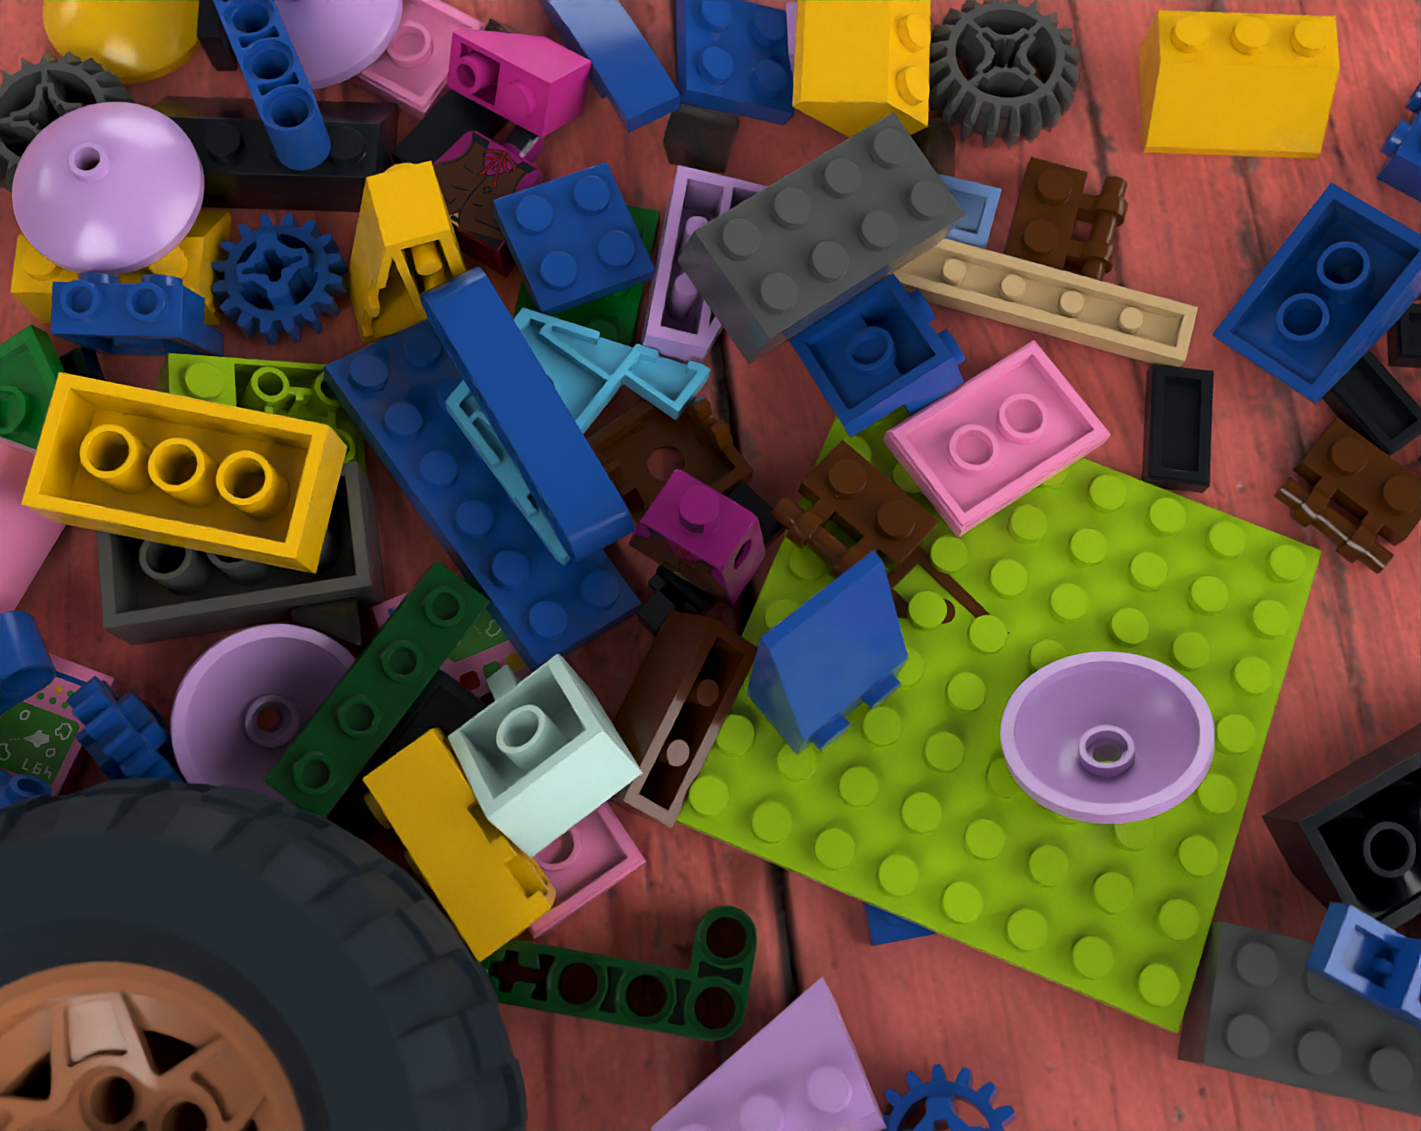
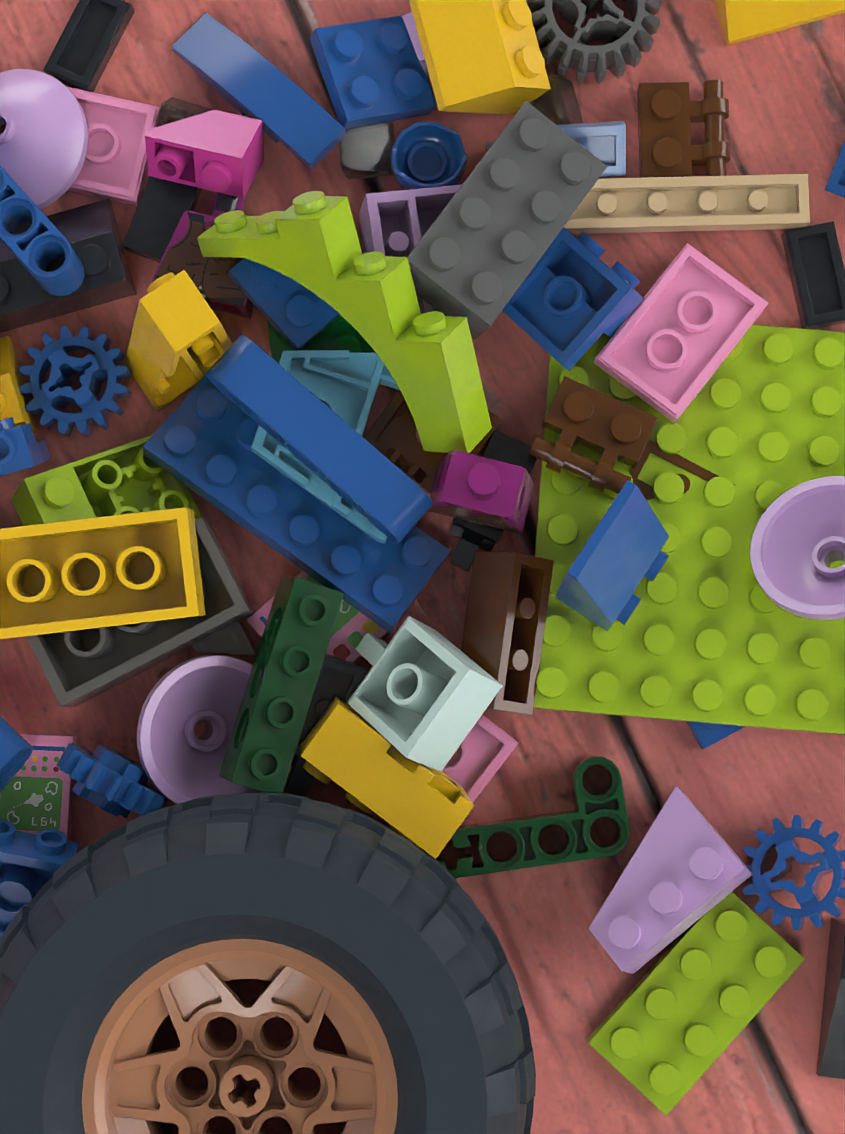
camera: 10 degrees left, 10 degrees up
(679, 344) = (424, 352): none -> lime arch
(763, 152) = (428, 156): none -> blue hair

